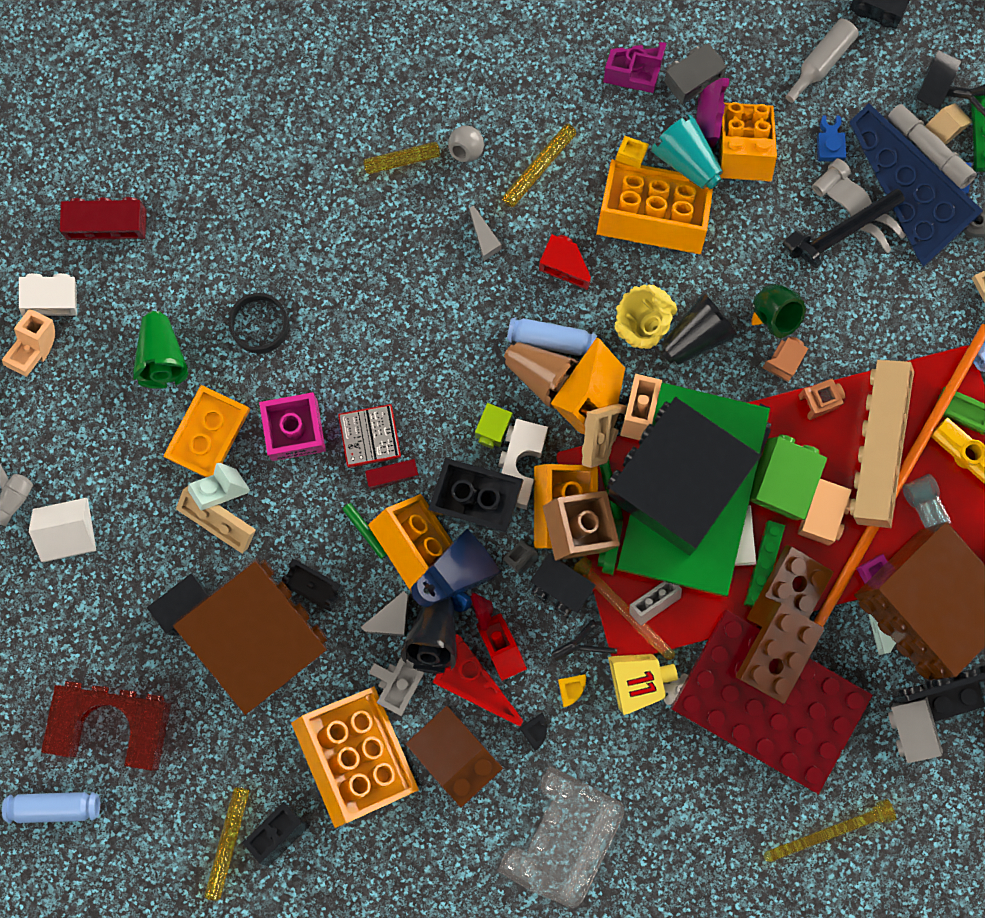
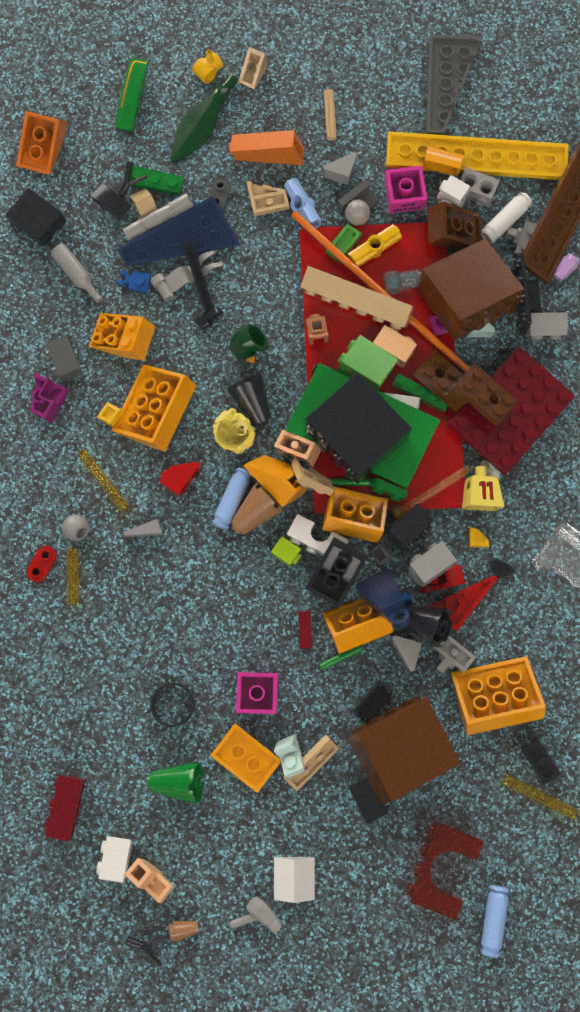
camera: 80 degrees left, 0 degrees up
(369, 436) = (274, 640): light grey tile -> none
(408, 117) = (43, 564): none -> red plate
(454, 756) = (510, 626): reddish brown slope -> none
(483, 610) = (412, 587): dark red slope -> none
(512, 620) = (431, 564): none -> light grey slope
(573, 645) = (449, 529): black plant -> none
(580, 525) = (375, 504): medium nougat brick -> none
(654, 602) = (433, 469): light grey piece -> none
(689, 153) = (124, 374): teal cone -> none
(711, 110) = (97, 355): magenta slope -> none
(786, 358) = (283, 345): nougat window -> none

